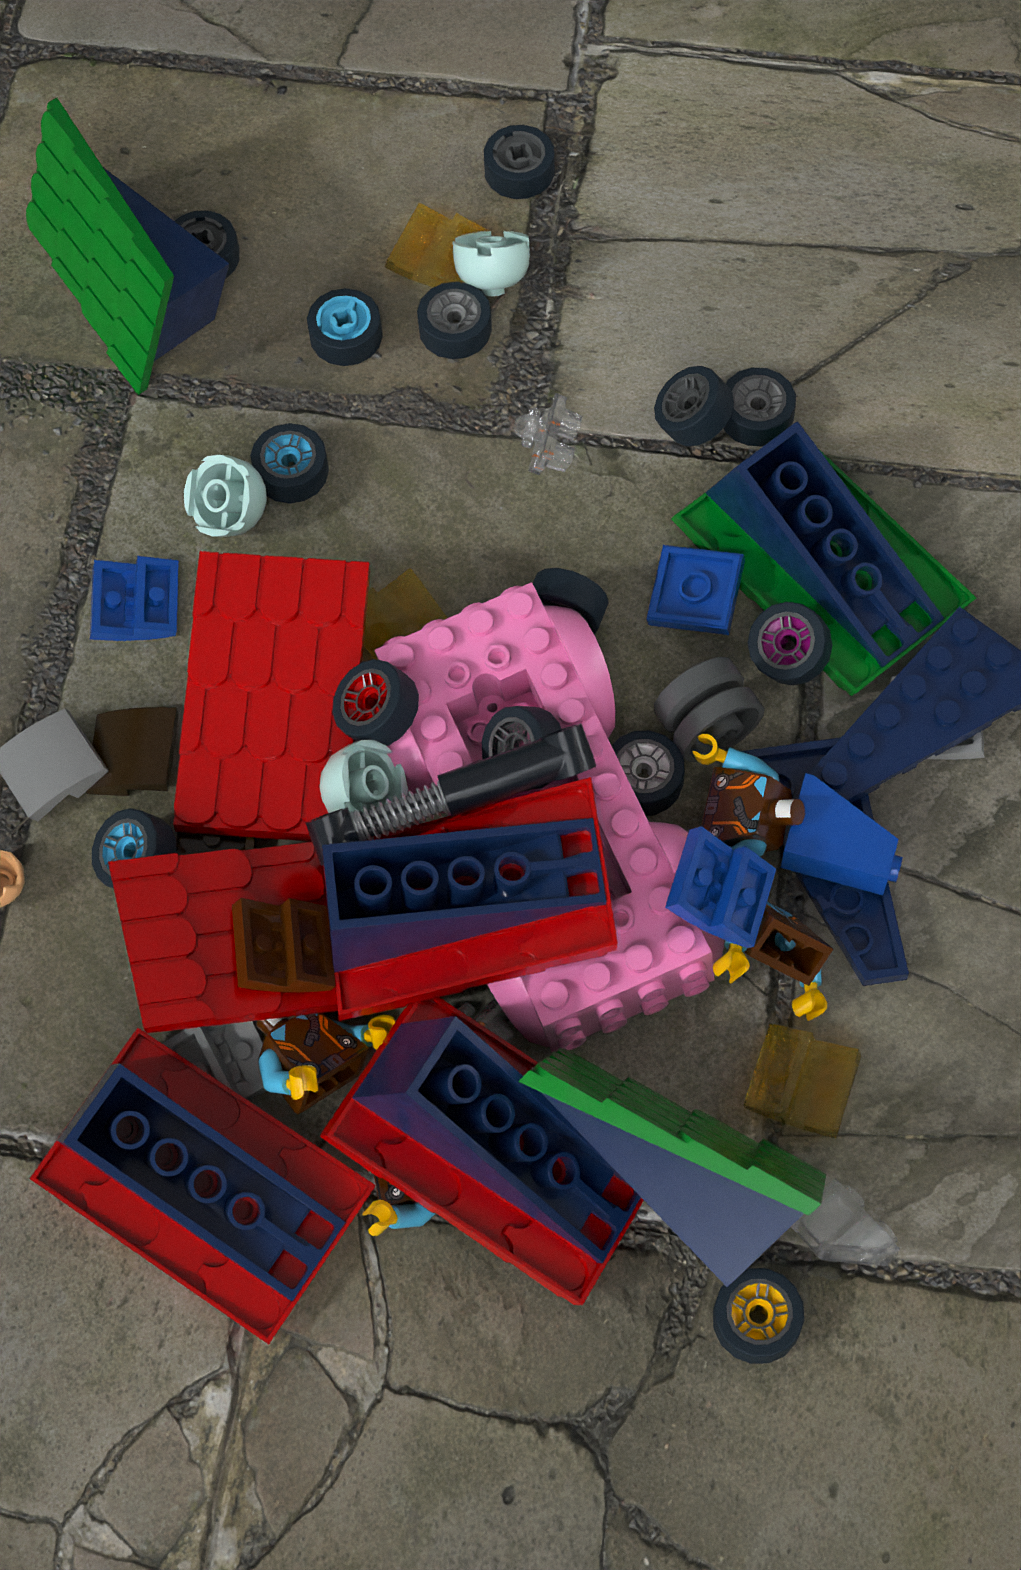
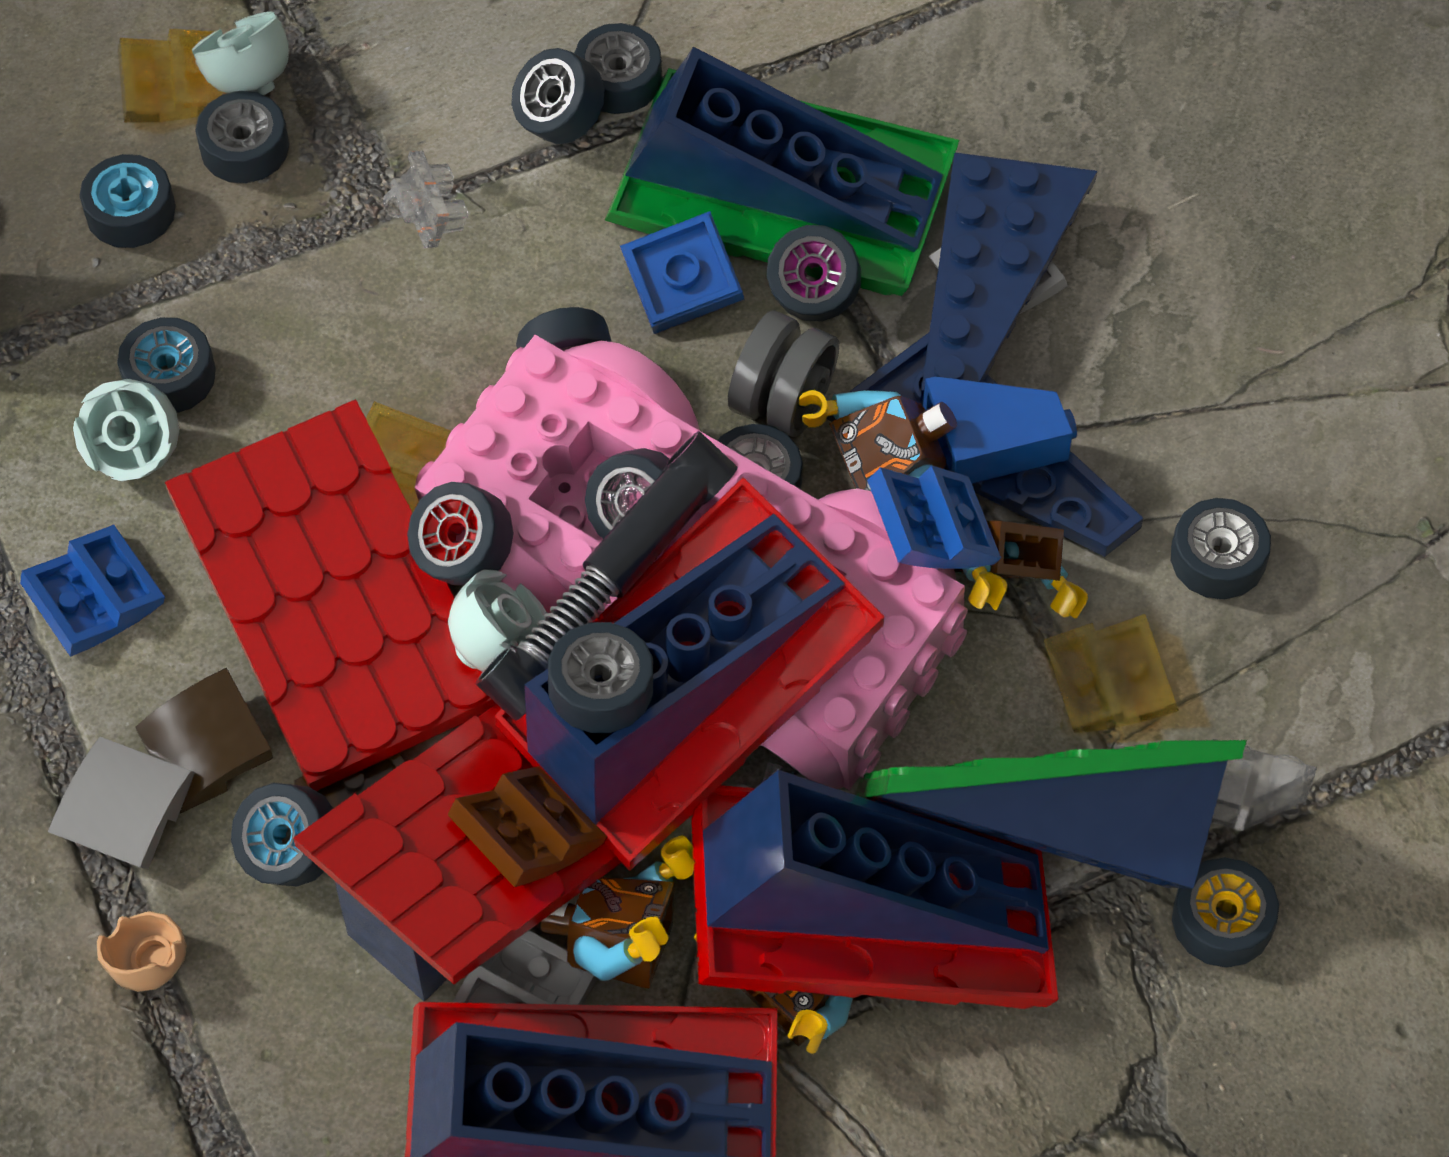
camera: 35 degrees left, 5 degrees down
(358, 854) = (603, 651): none -> wheel
(977, 1026) = (1239, 534): none -> wheel

